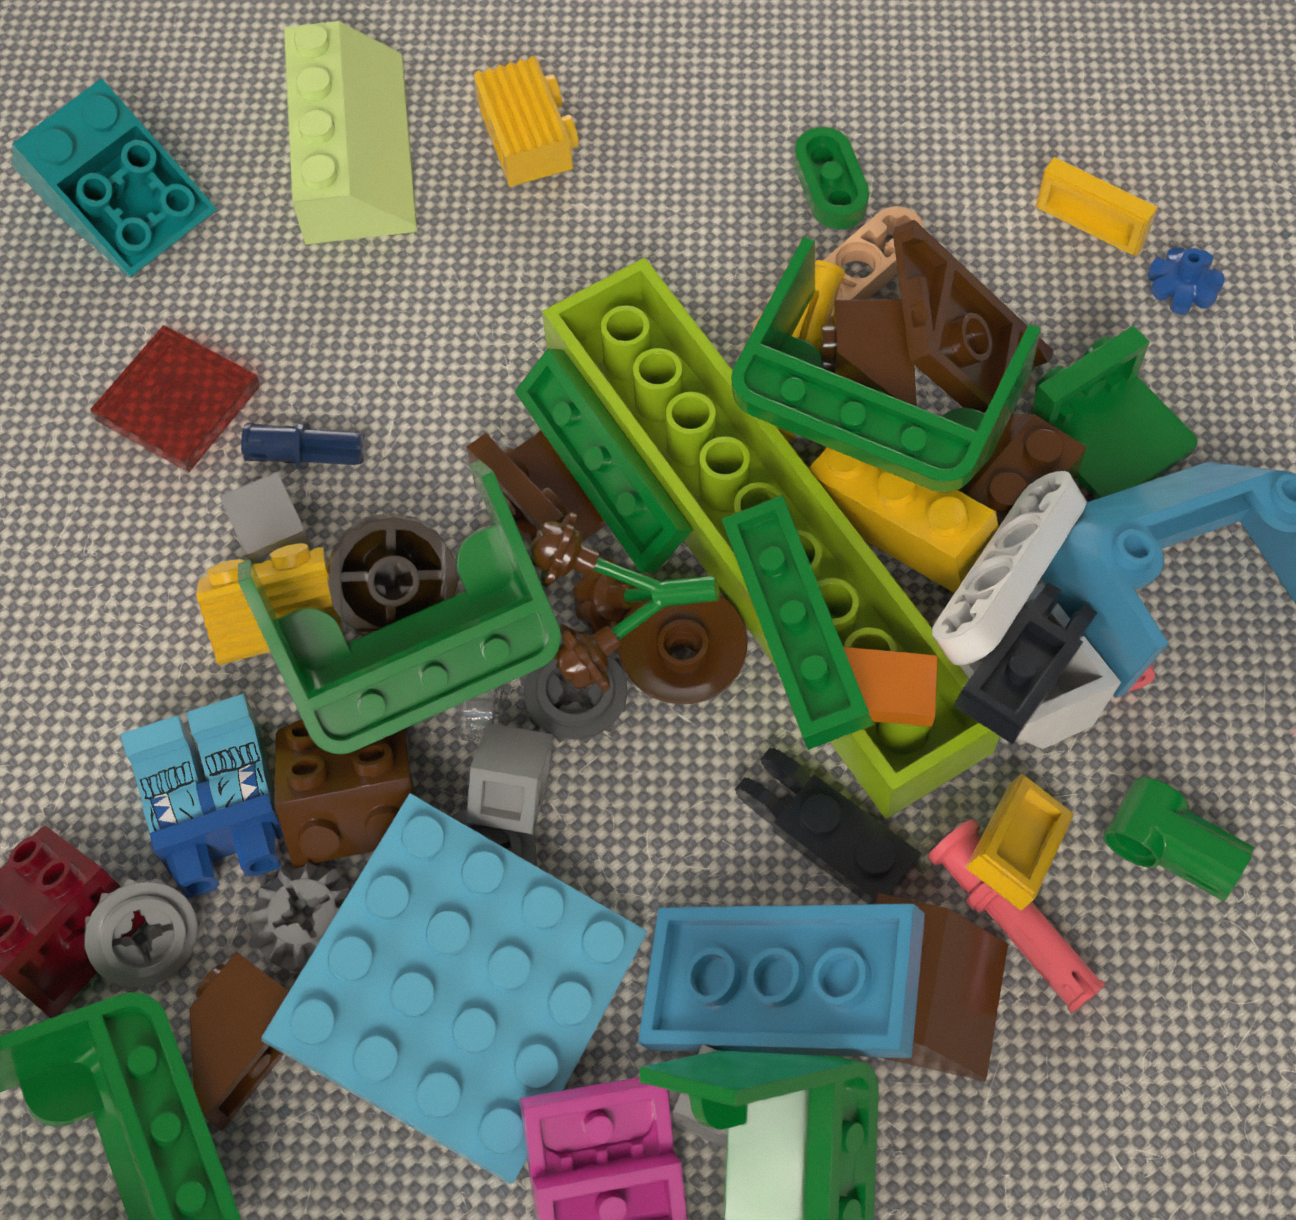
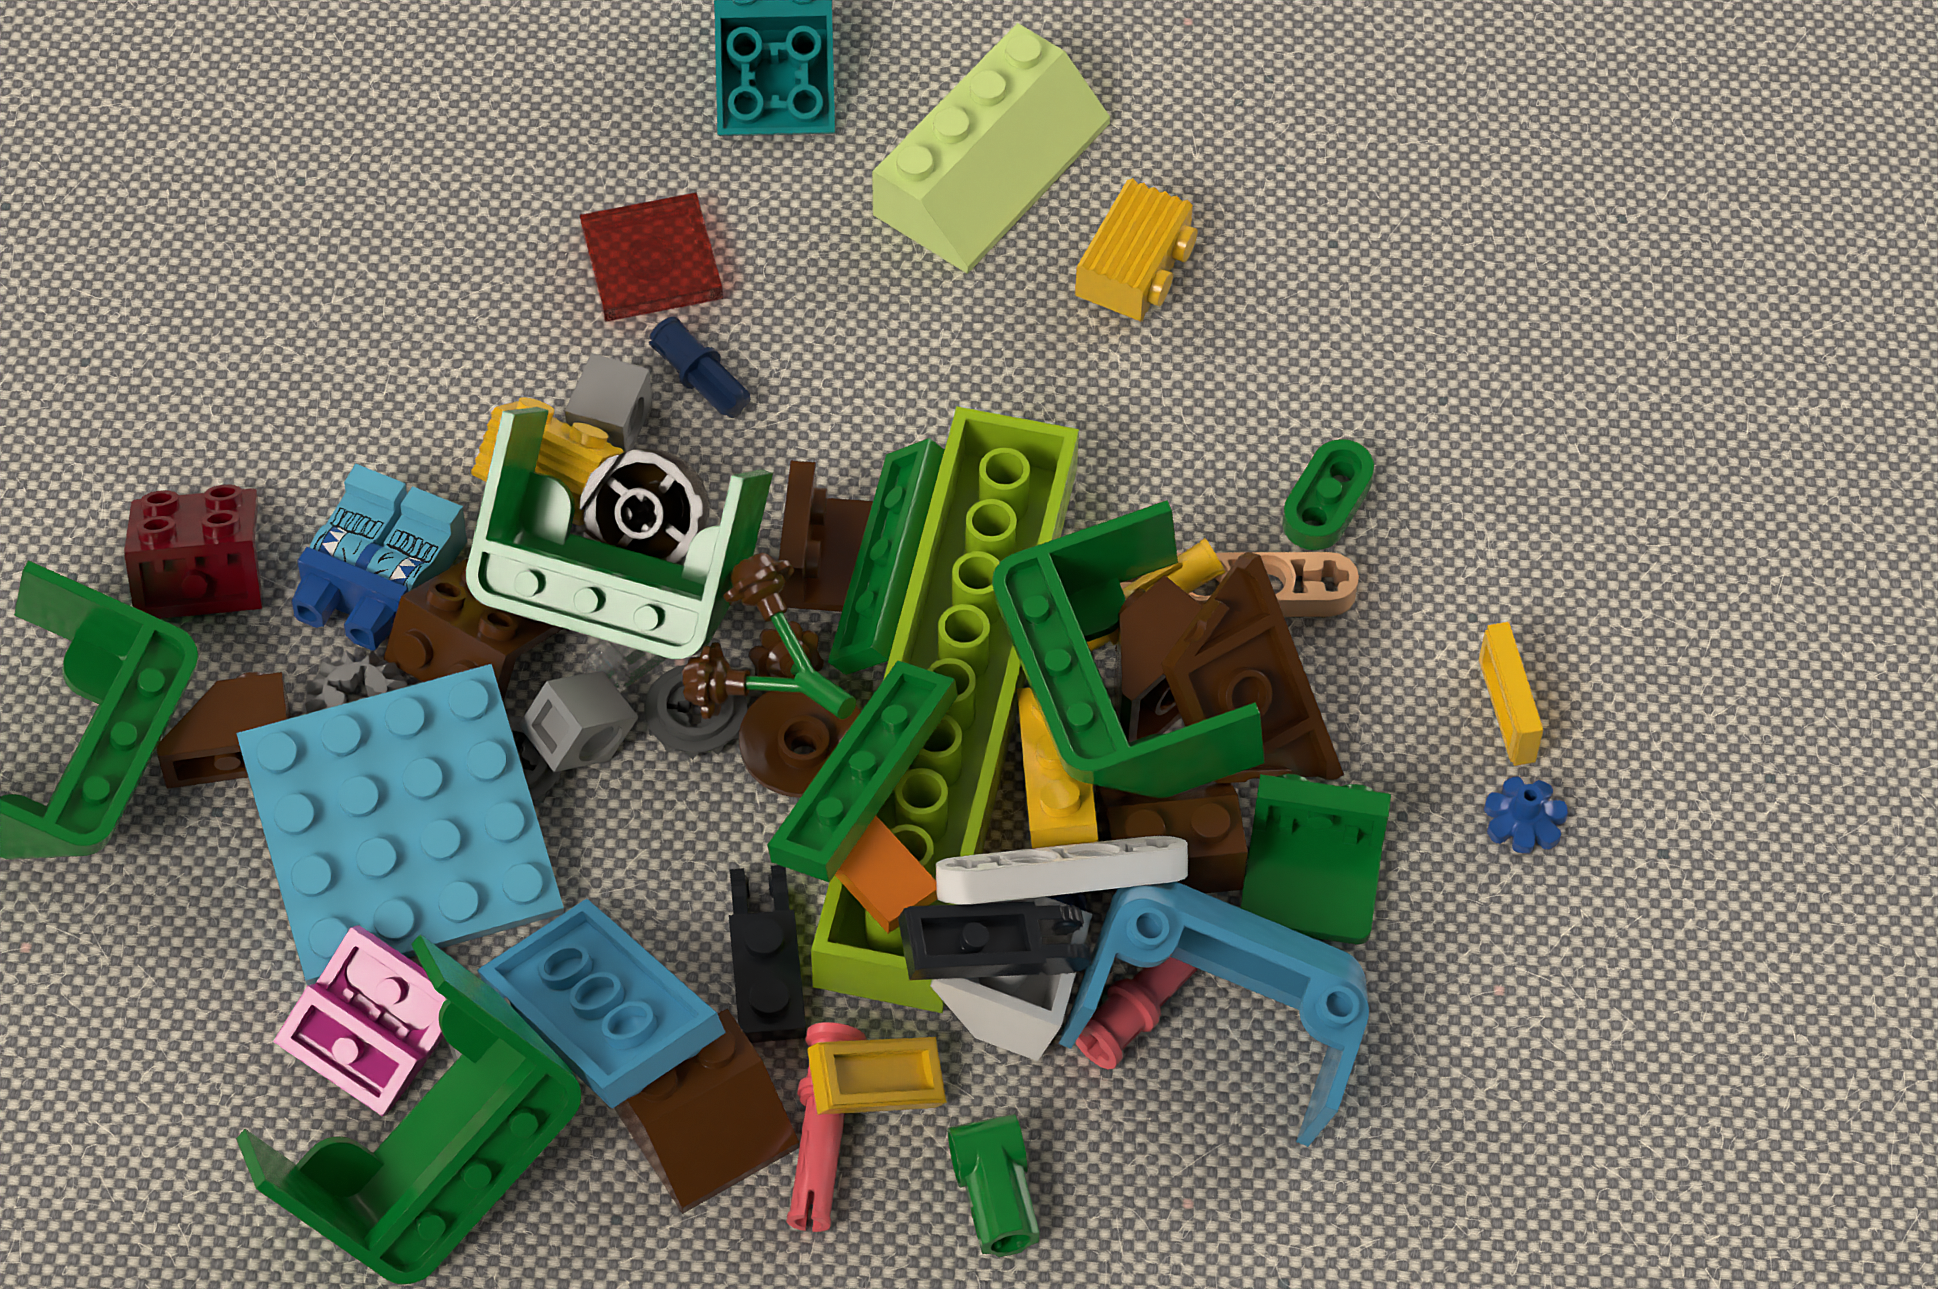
camera: 40 degrees right, 5 degrees down
(167, 945) = (212, 616): light grey gear -> none

